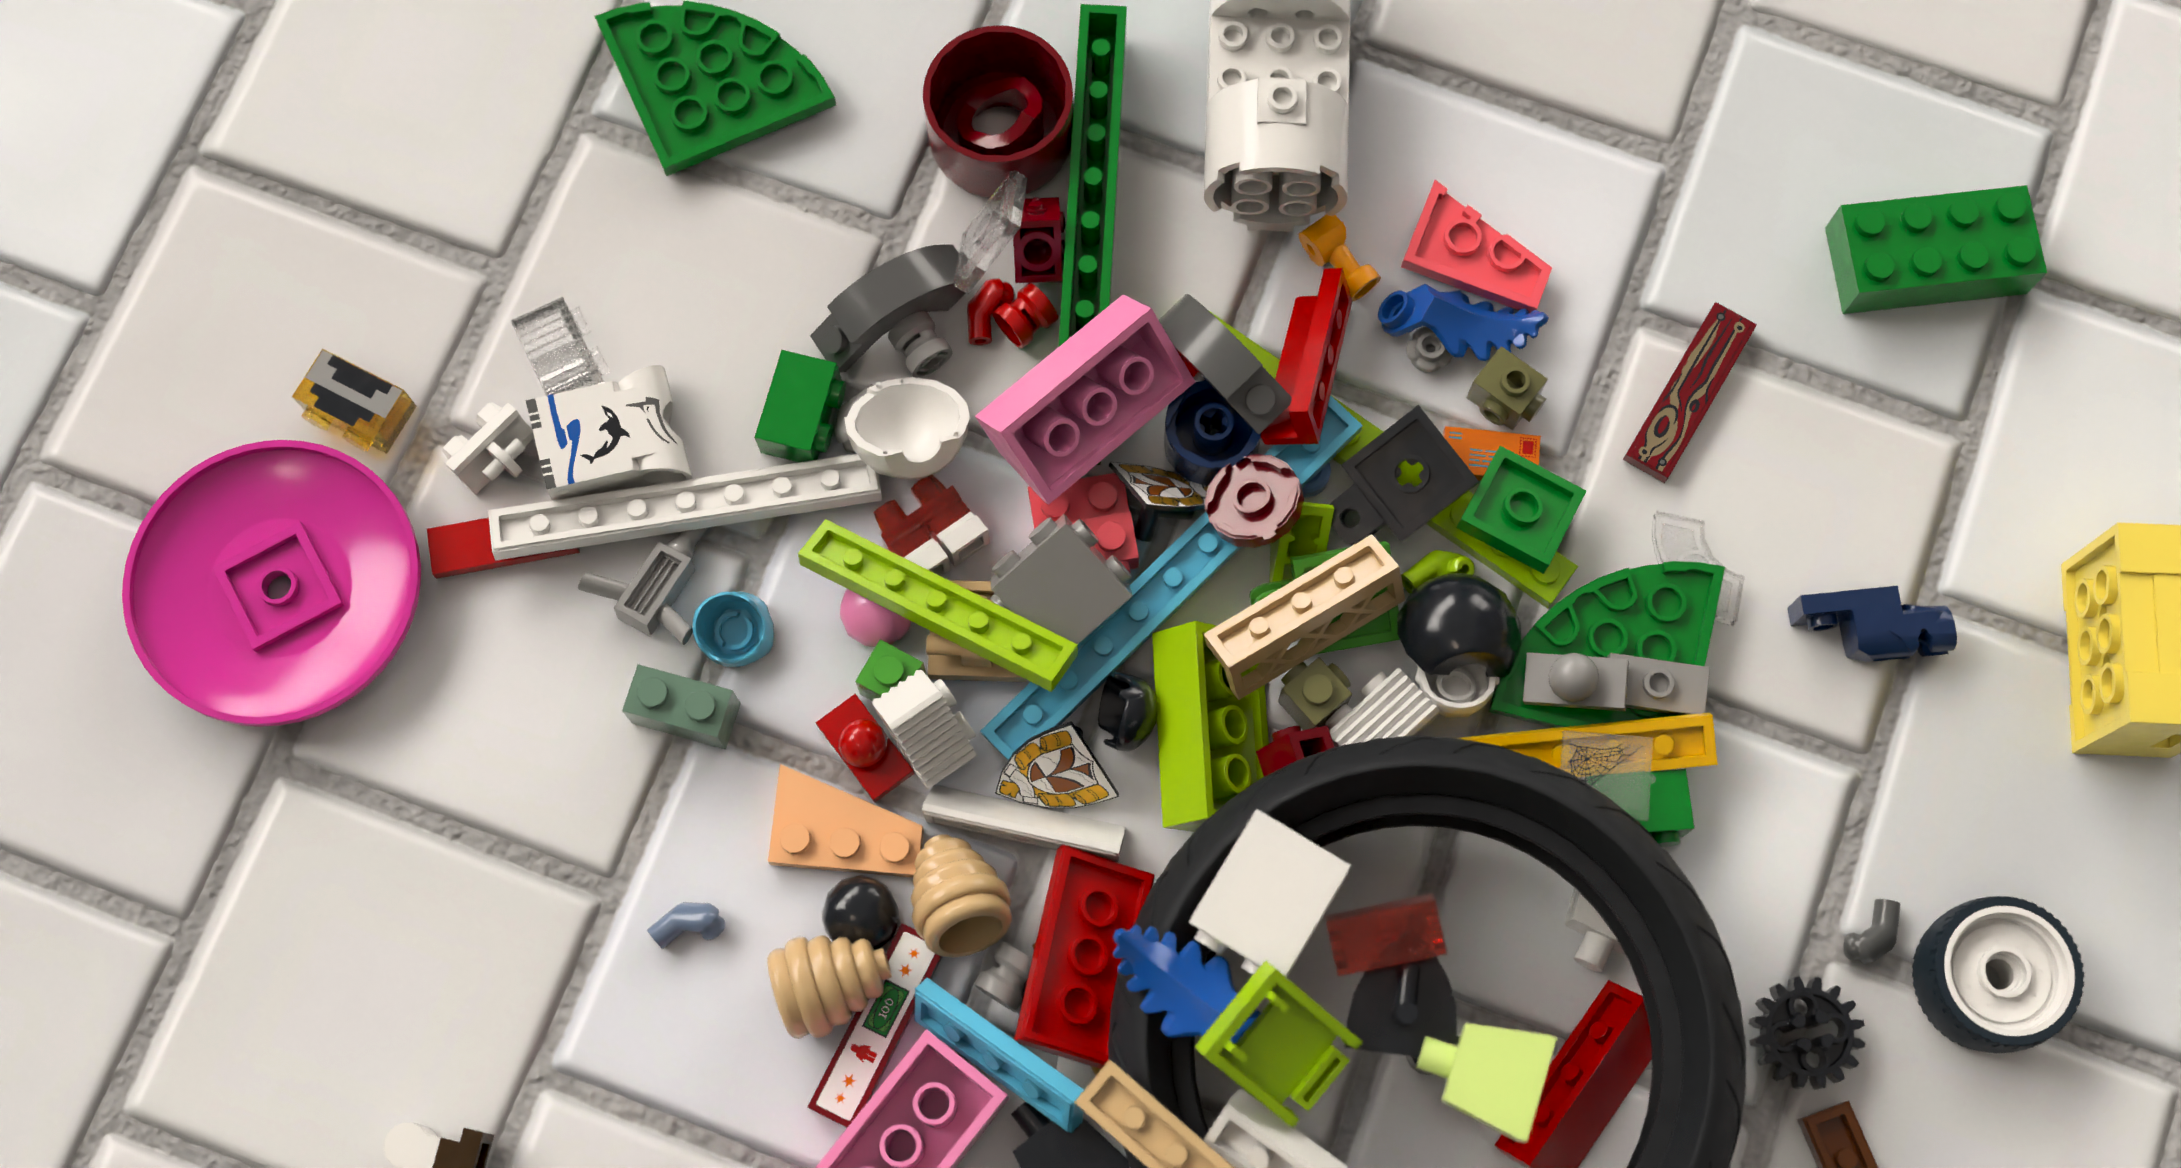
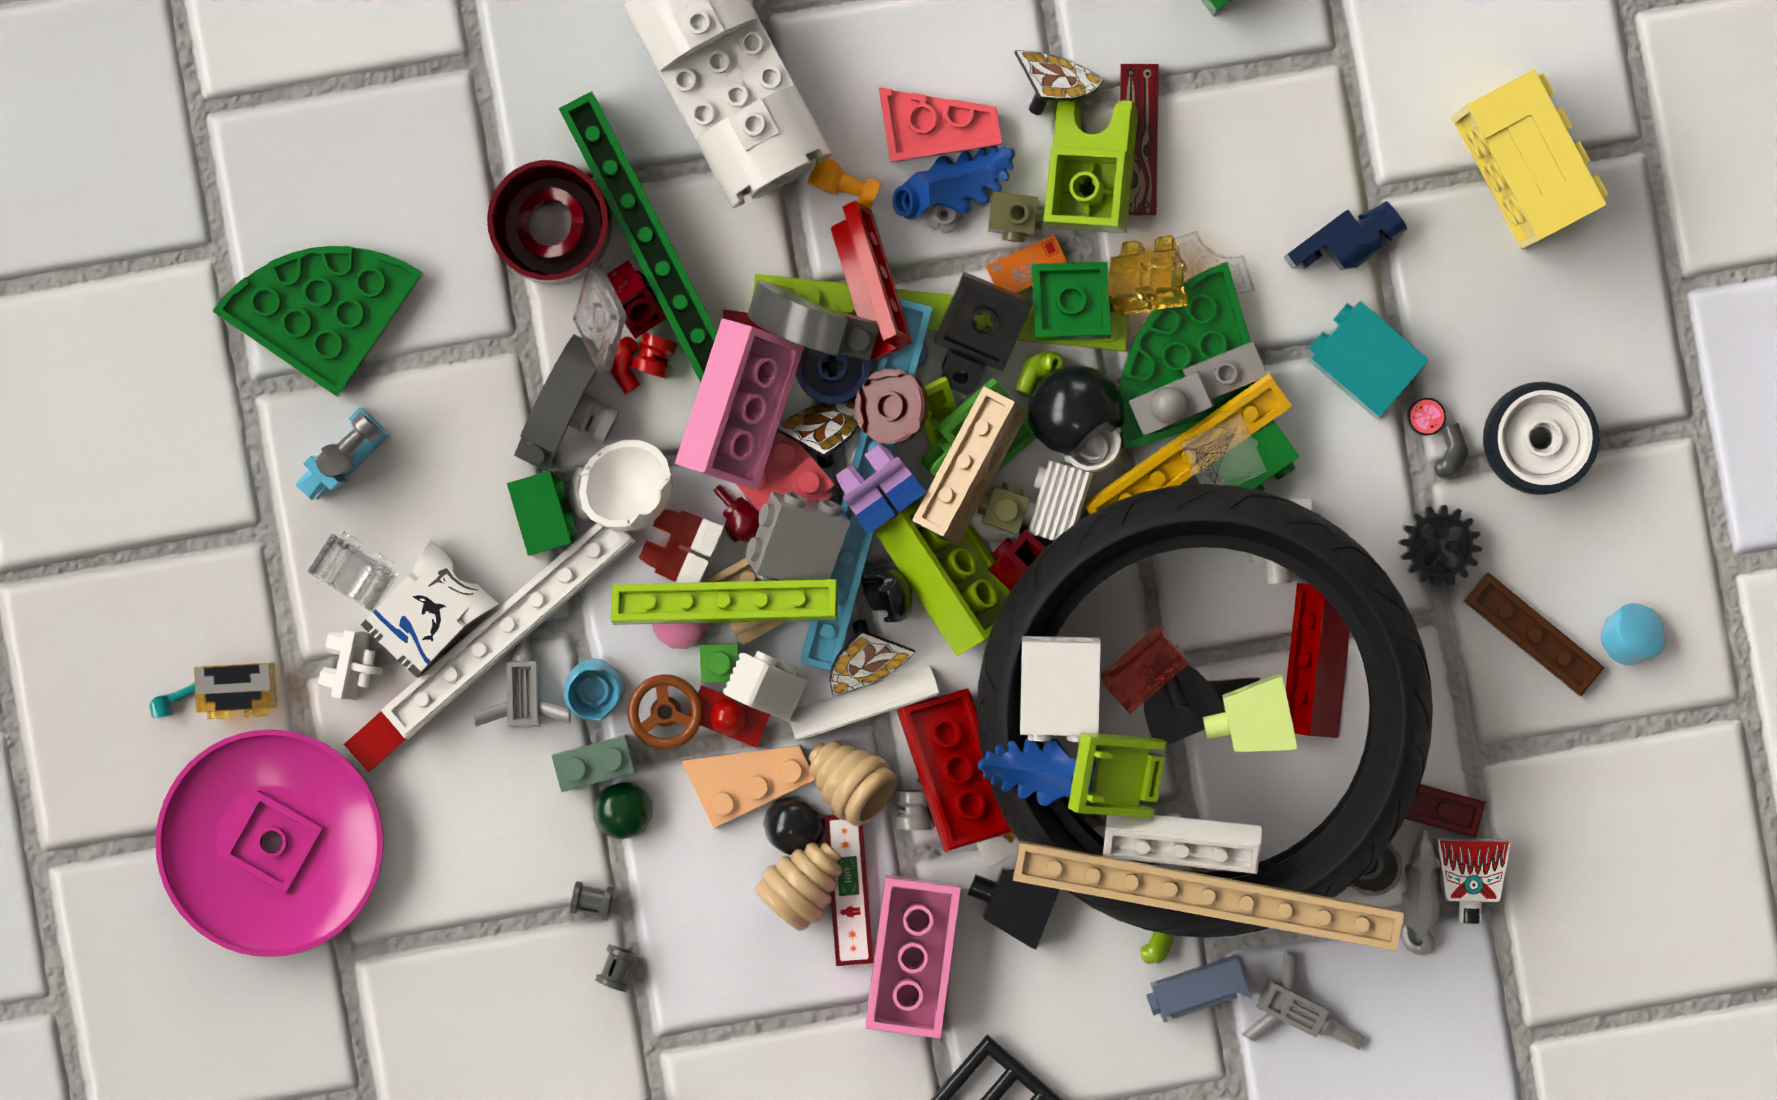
camera: 30 degrees left, 15 degrees up
(266, 376) = (161, 706): none -> teal hand
(557, 956) = (617, 968): none -> dark grey bush
(579, 861) = (591, 900): none -> dark grey bush
(626, 230) = (342, 459): none -> hips
(680, 782) = (622, 810): none -> dark green hair
(687, 917) = (686, 893): sand blue arm -> none
(800, 713) = (691, 722): none -> dark orange piece
(998, 1055) = (938, 865): medium azure tile -> none
(1011, 531) = (741, 517): none -> dark red piece
(1206, 572) = (867, 500): none -> lavender hips
(1621, 388) = (1091, 158): none -> lime brick
(1622, 533) = (1147, 278): none -> clear yellow hips
(1631, 279) = (1056, 79): none -> shield
(1829, 767) = (1366, 358): none -> teal brick
(1864, 876) = (1426, 416): none -> tile

